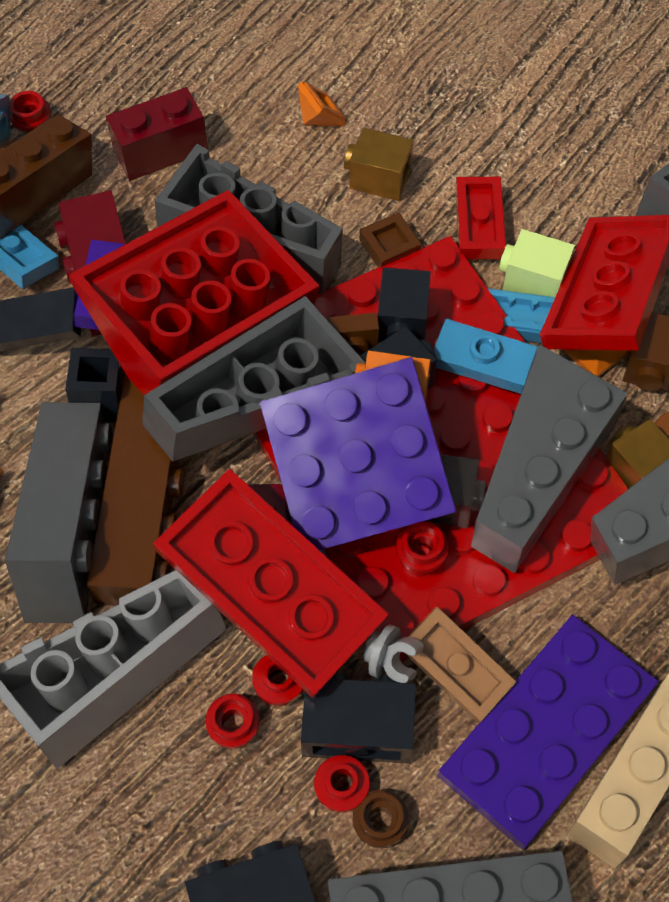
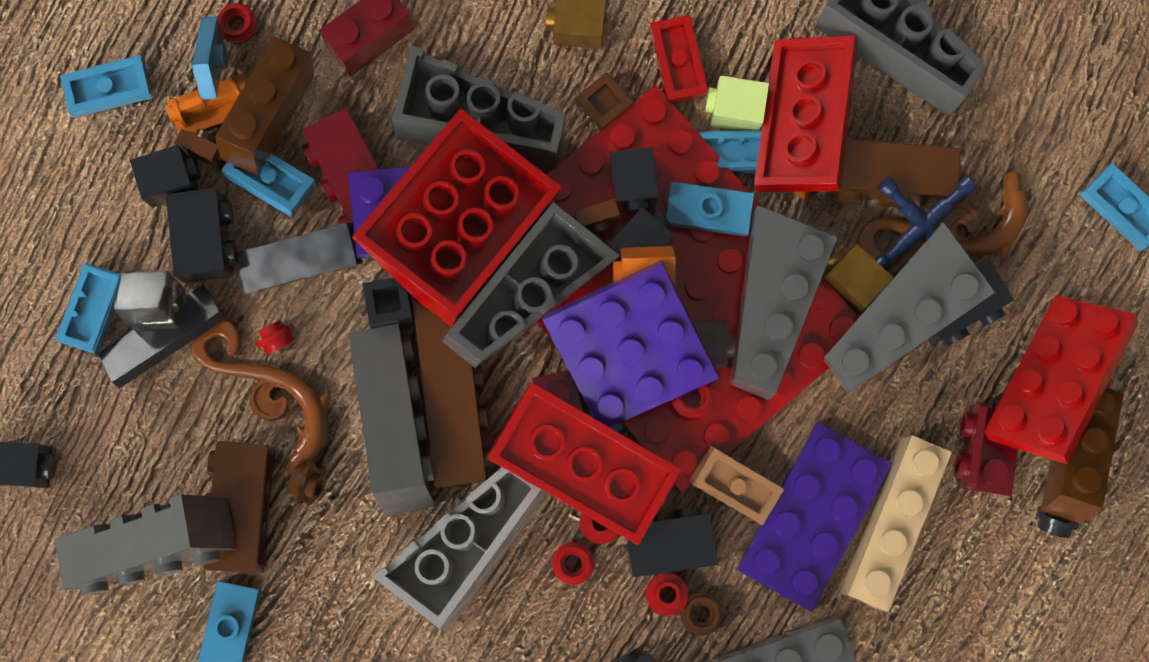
camera: 15 degrees left, 20 degrees up
(384, 651) = (683, 493): light grey plate -> none

